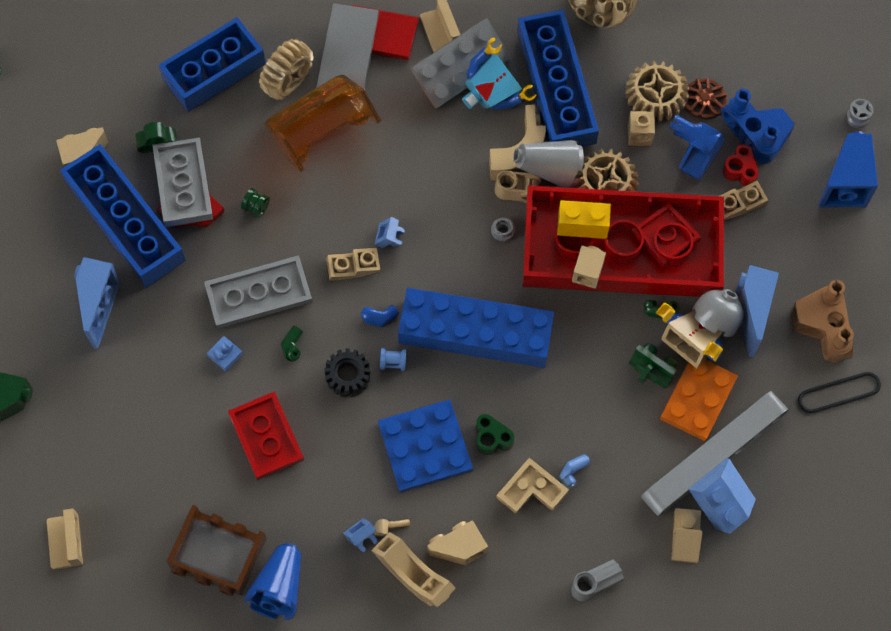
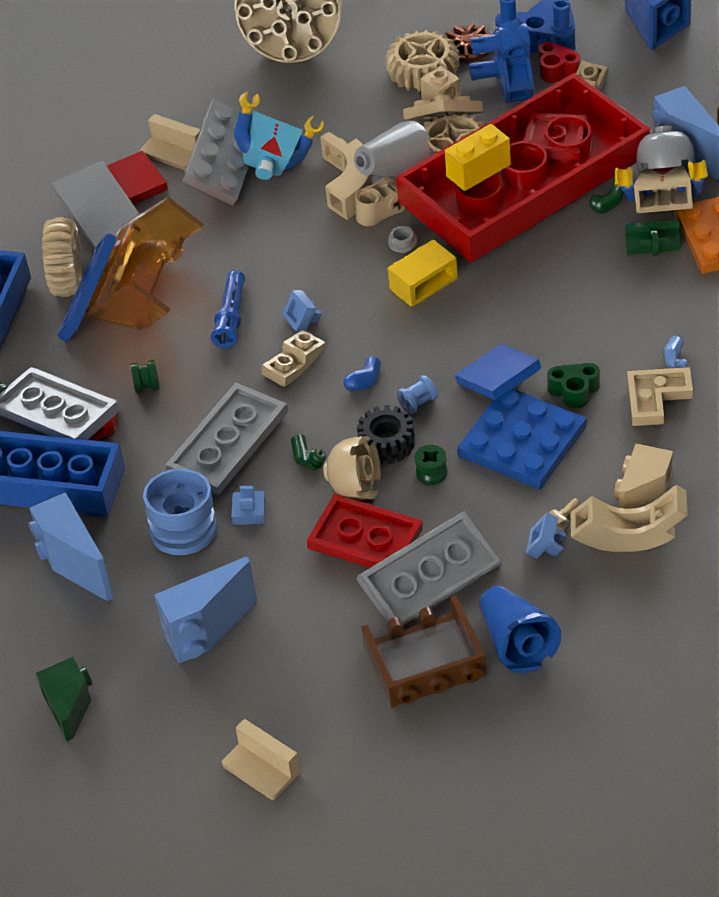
camera: 35 degrees left, 20 degrees down
(121, 413) = (205, 608): none -> medium blue slope
(172, 315) = (180, 511): none -> medium blue wheel
(273, 497) = (429, 570): none -> light grey tile
(282, 104) = (86, 287): none -> blue tile
(299, 385) = (353, 468): none -> tan cylinder
(341, 198) = (234, 286): none -> blue pin
(350, 425) = (431, 464): none -> dark green wheel
(454, 386) = (498, 371): none -> blue tile
(475, 327) = (465, 318): blue brick -> none
(486, 267) = (422, 273): none -> yellow brick
(557, 78) = (297, 90): blue brick -> none
(589, 266) = (522, 185): tan brick -> none
(624, 148) = (441, 105): none -> tan plate

